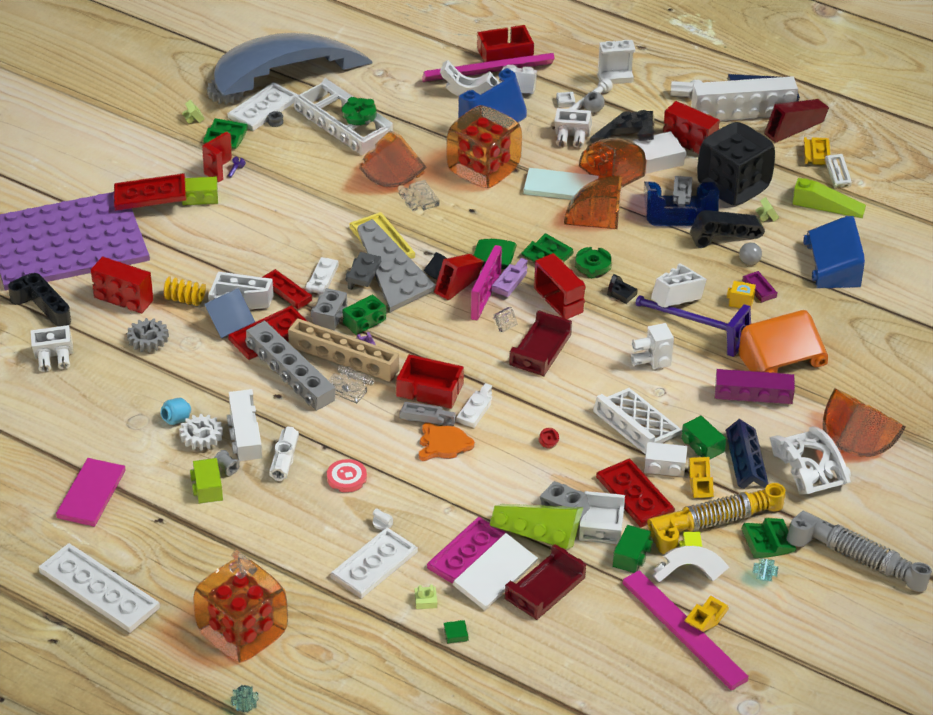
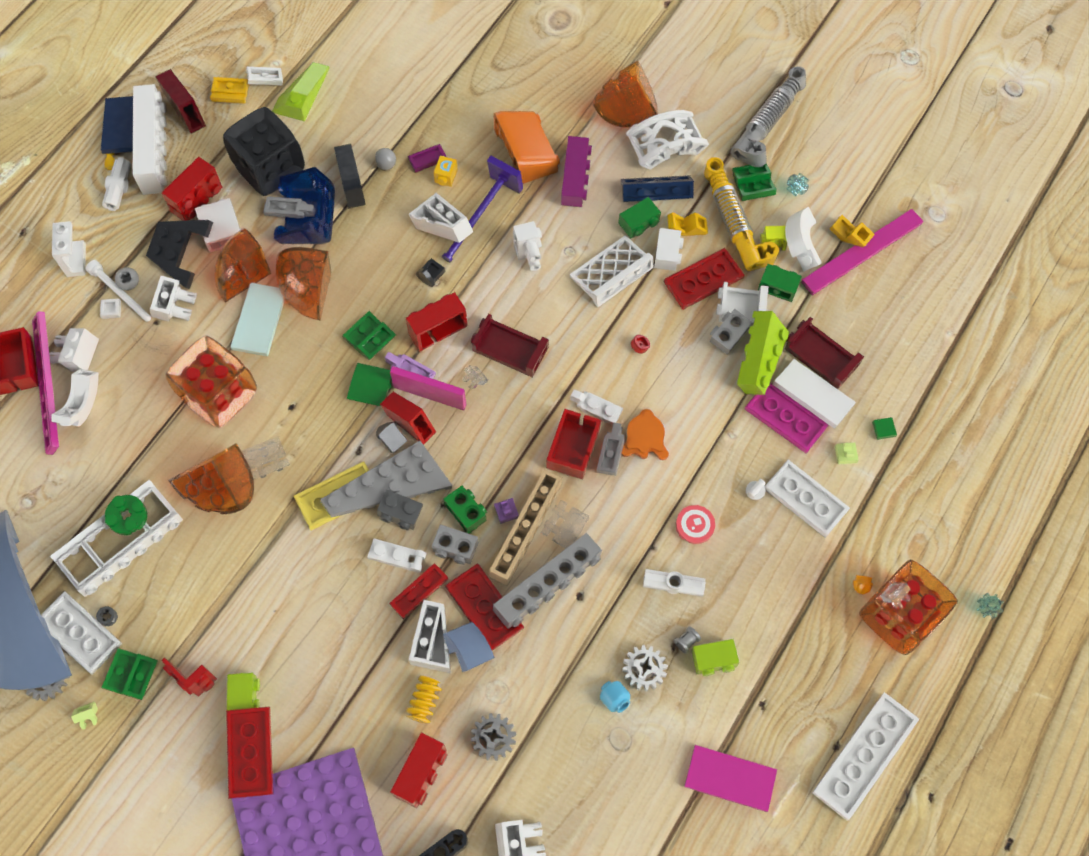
camera: 90 degrees left, 25 degrees up
(237, 164) = (193, 657): dark purple hand -> none
(244, 426) = (643, 622): white wedge -> none
(503, 97) = (147, 386): blue windscreen -> none
(593, 261) = (390, 303): green plate -> none
(766, 211) = (320, 138): yellowish green tile -> none
(836, 254) = (392, 85): blue windscreen -> none

